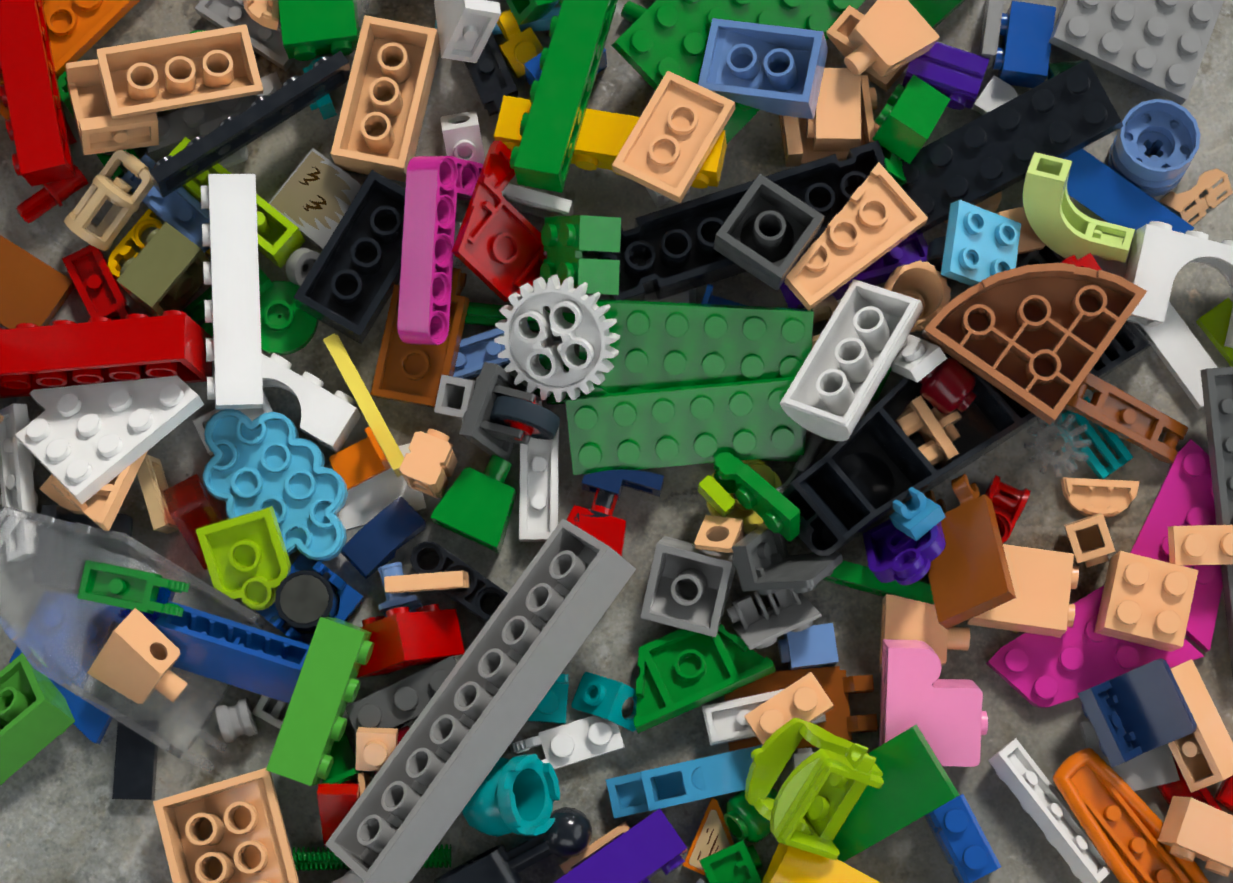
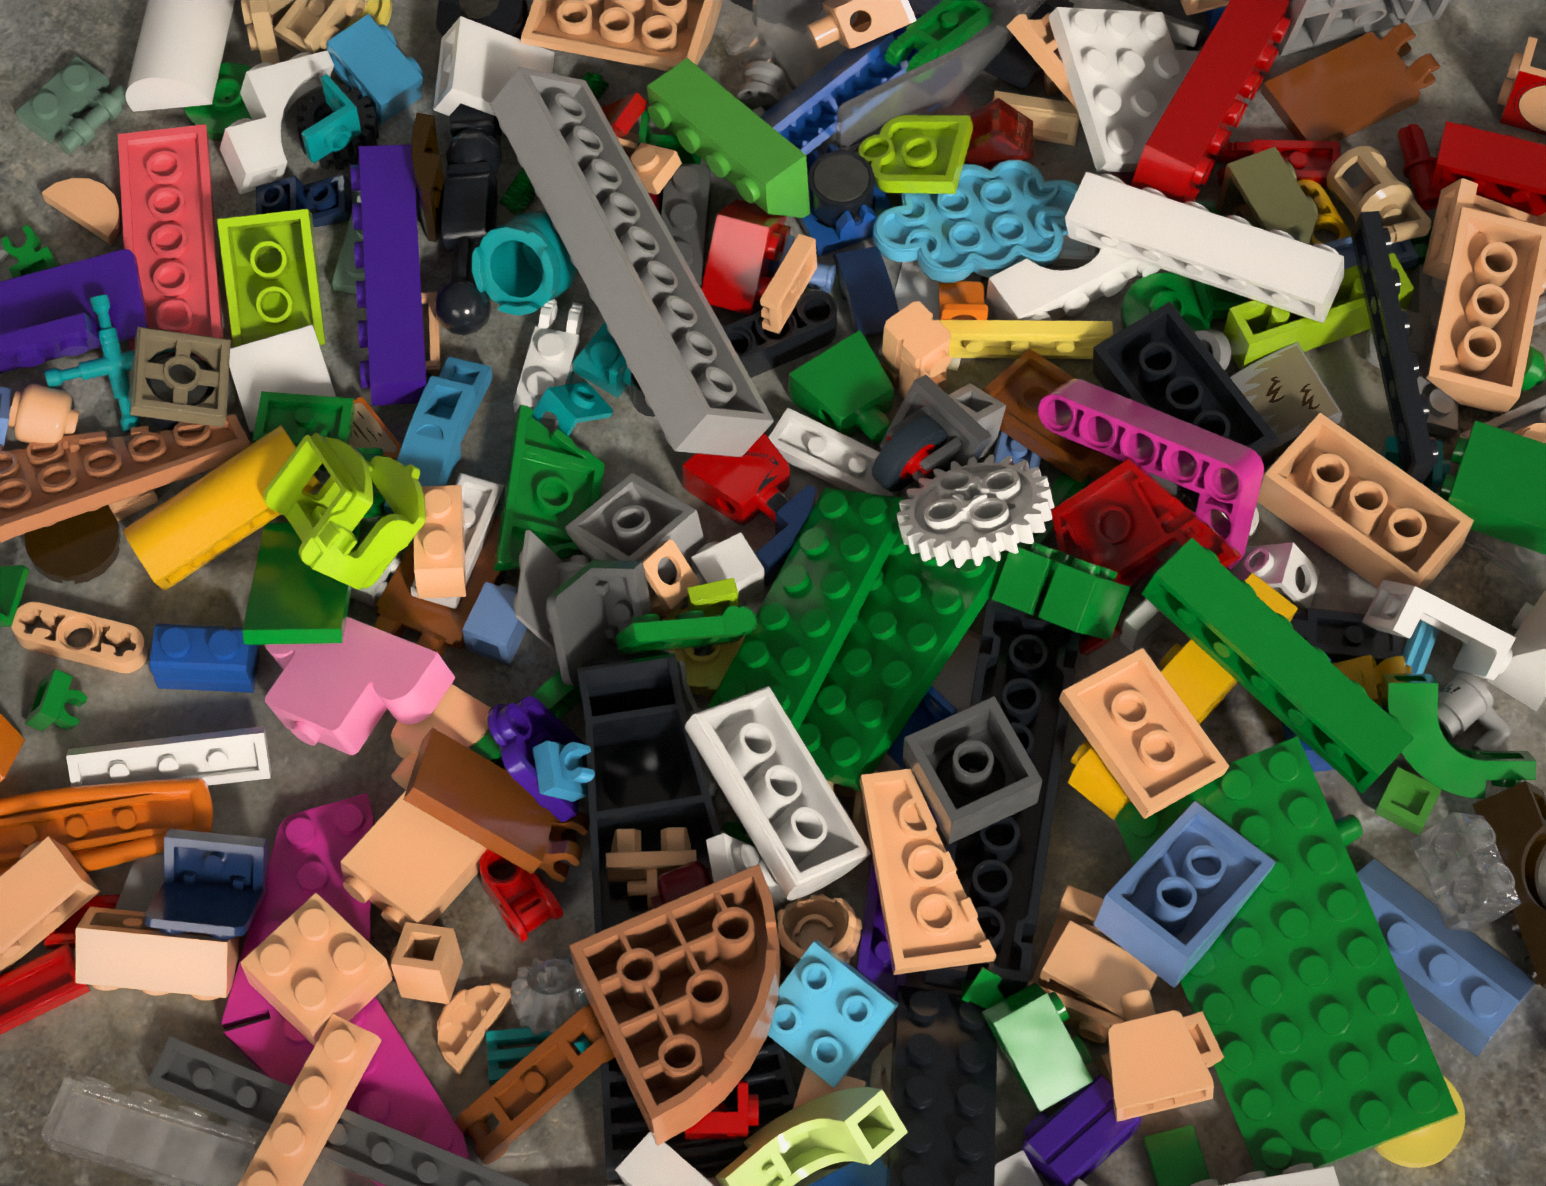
camera: 115 degrees right, 15 degrees down
(678, 510) = (730, 560): none -> white brick

